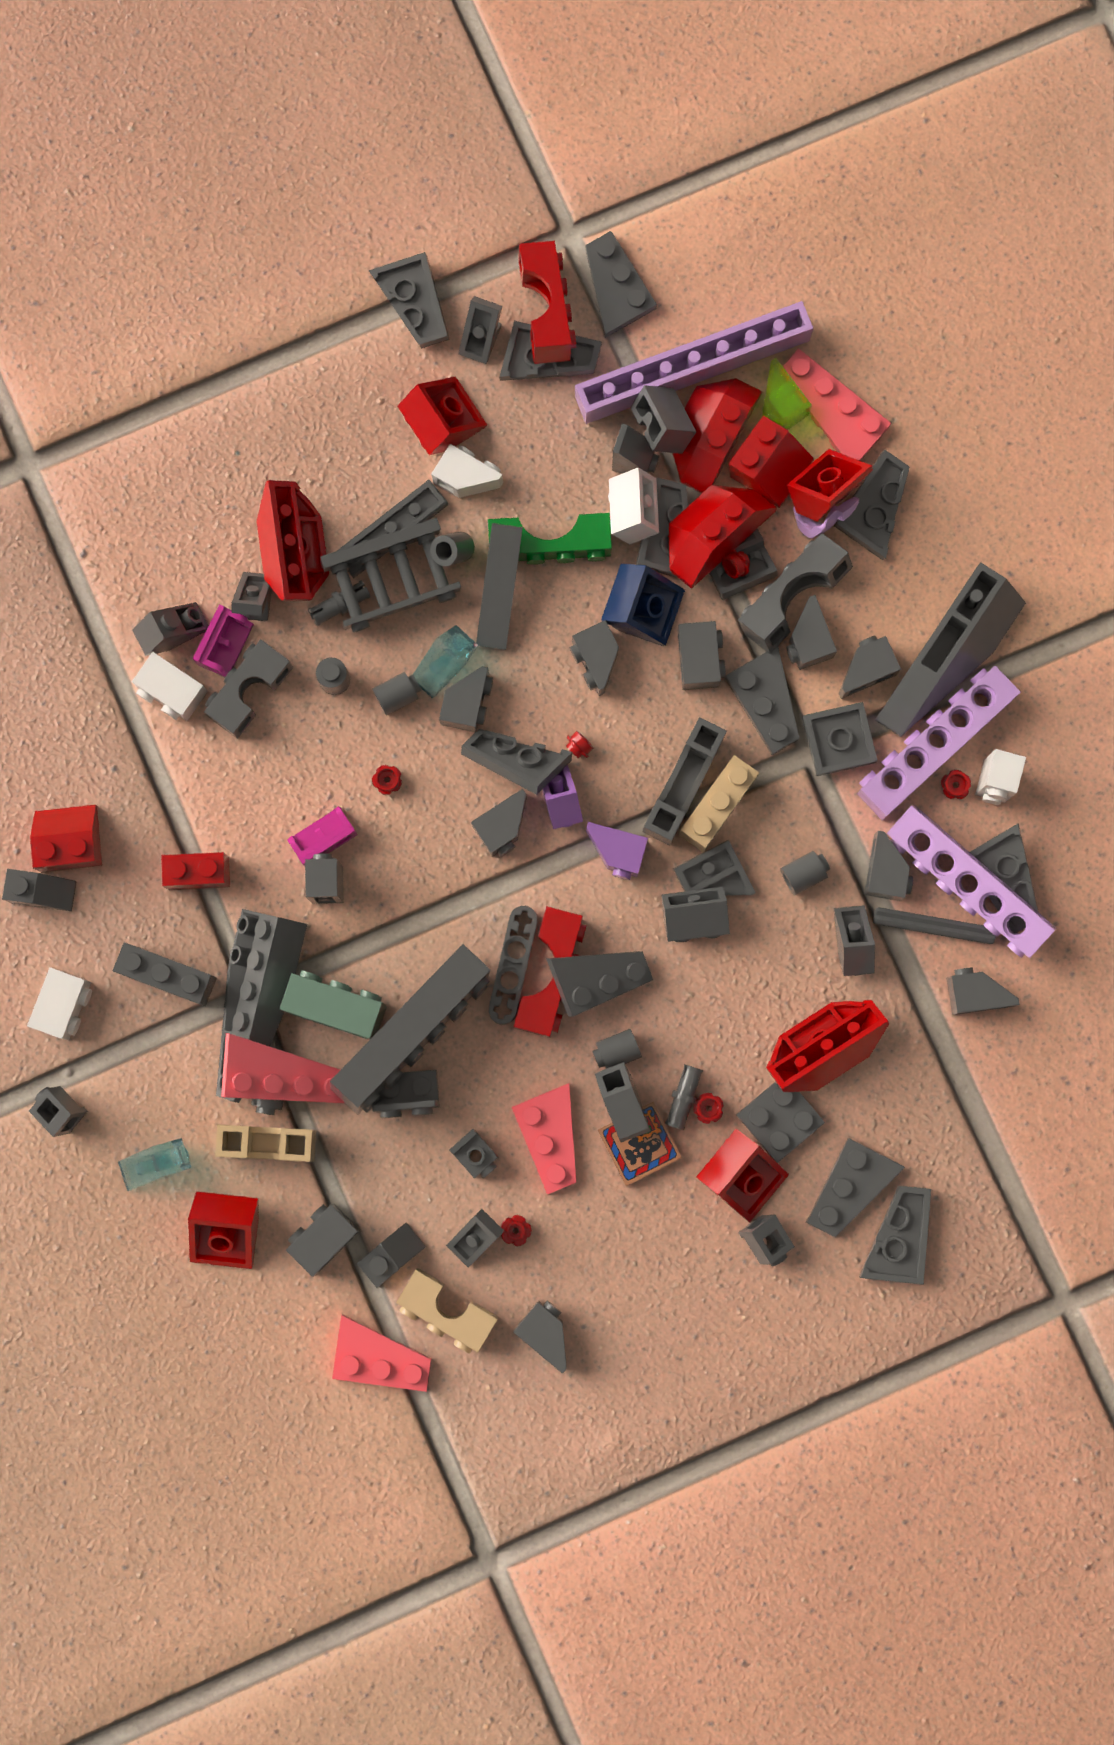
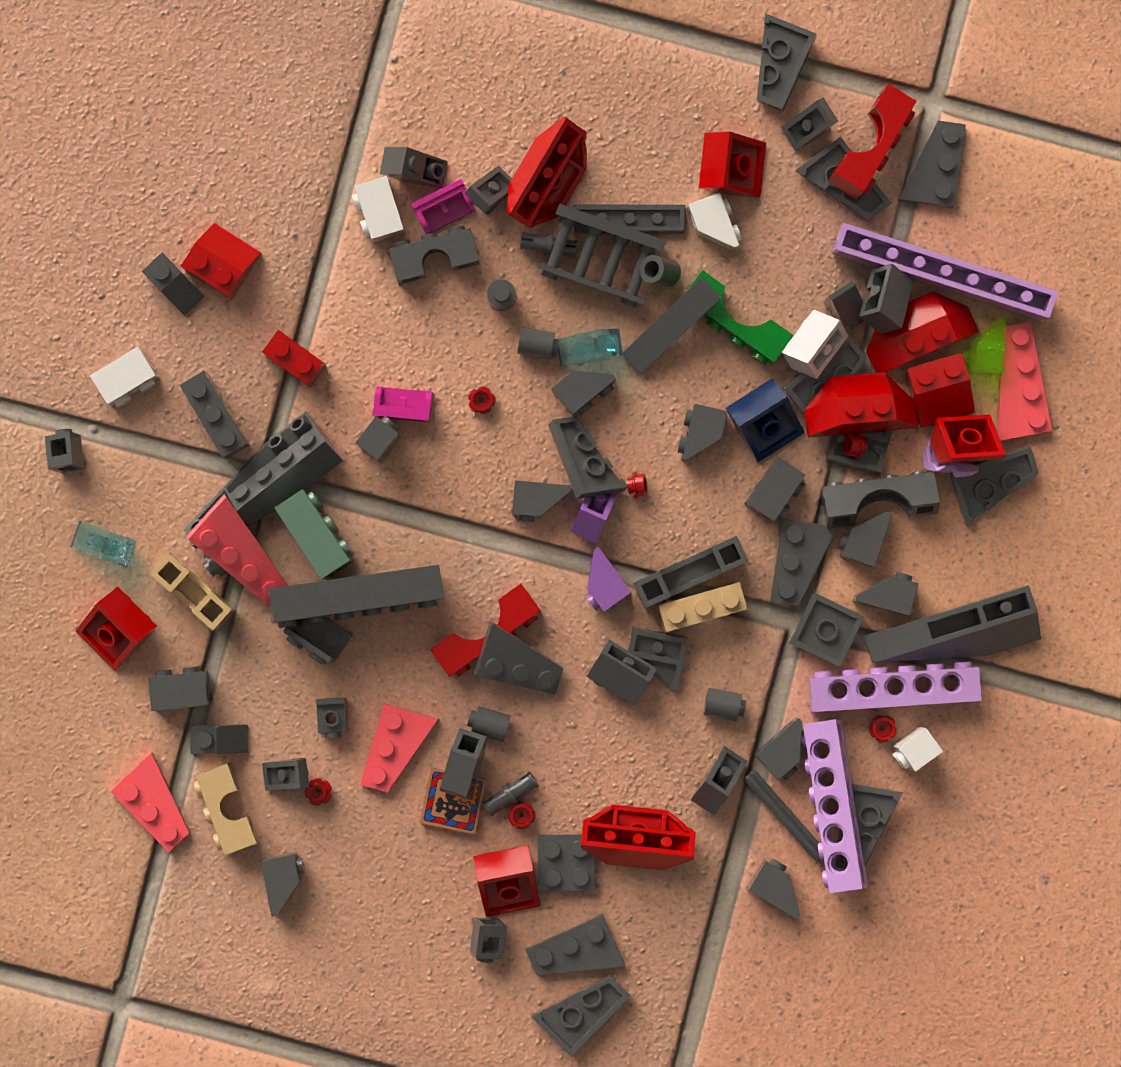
camera: 30 degrees right, 5 degrees up
(510, 964) = (466, 606): dark grey beam -> none

